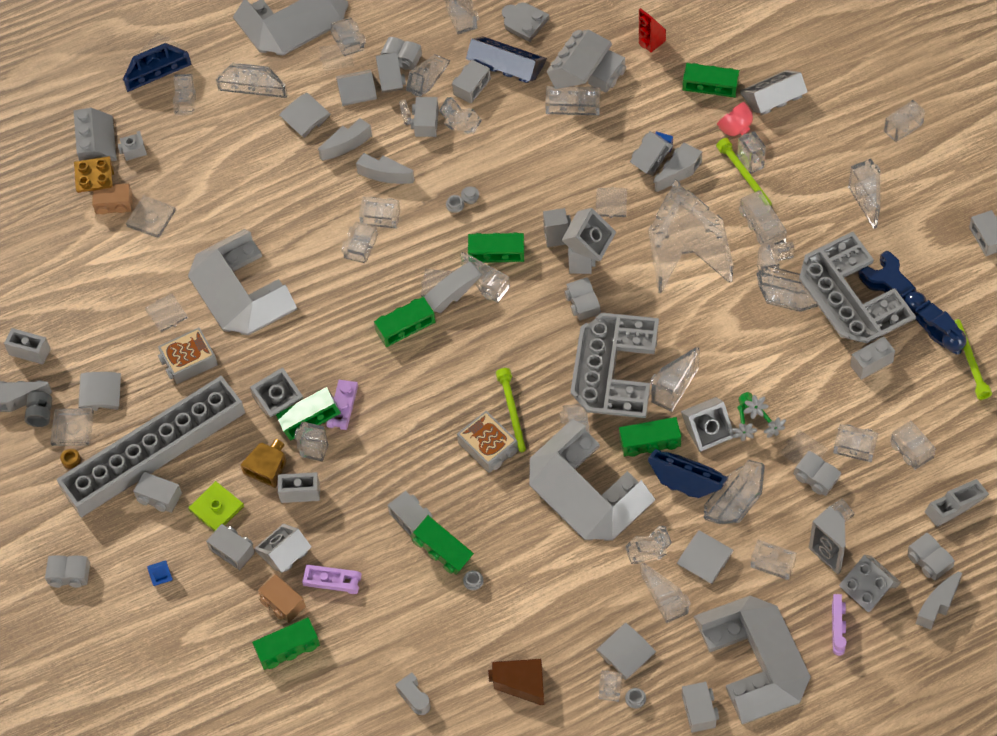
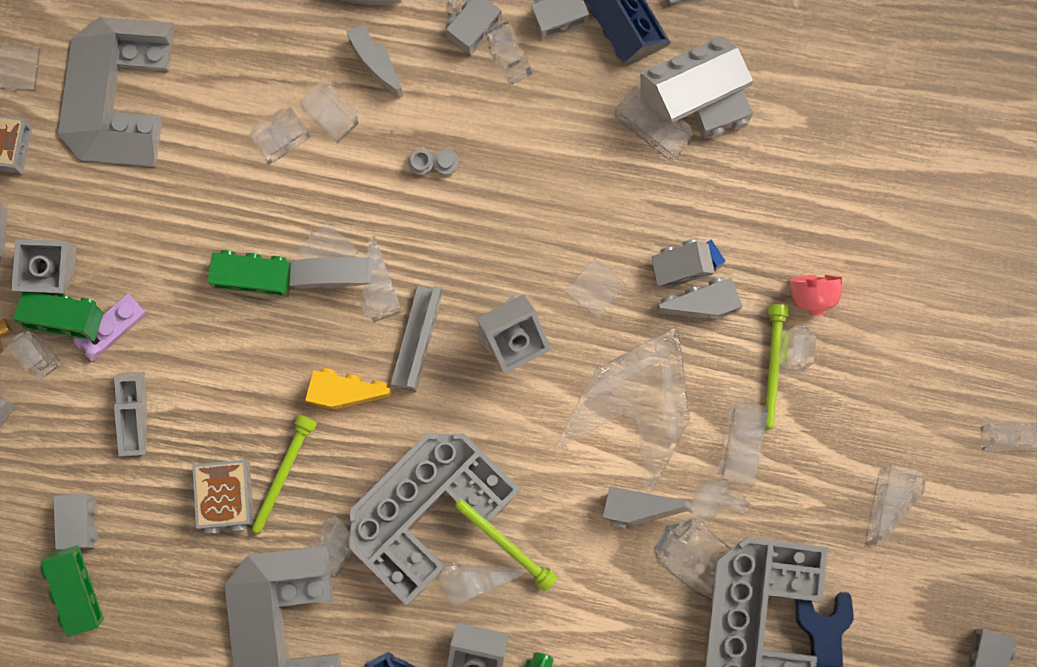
camera: 30 degrees right, 20 degrees up
(394, 438) = (131, 413): none -> light grey slope
(473, 580) = (82, 651): light grey plate -> none
(497, 247) = (420, 253): green brick -> none
(510, 345) = (340, 392): none -> yellow slope
(531, 290) = (417, 338): none -> light grey fence
(555, 226) = (500, 282): light grey brick -> none
(582, 298) = (463, 393): light grey brick -> none
(650, 32) = (809, 100): red slope -> none
(650, 436) = (399, 626): green brick -> none
(710, 358) = (543, 577): none -> lime piece
(711, 80) = (832, 213): green brick -> none
(732, 285) = (638, 508): none -> light grey slope
(774, 91) = (893, 282): light grey slope -> none

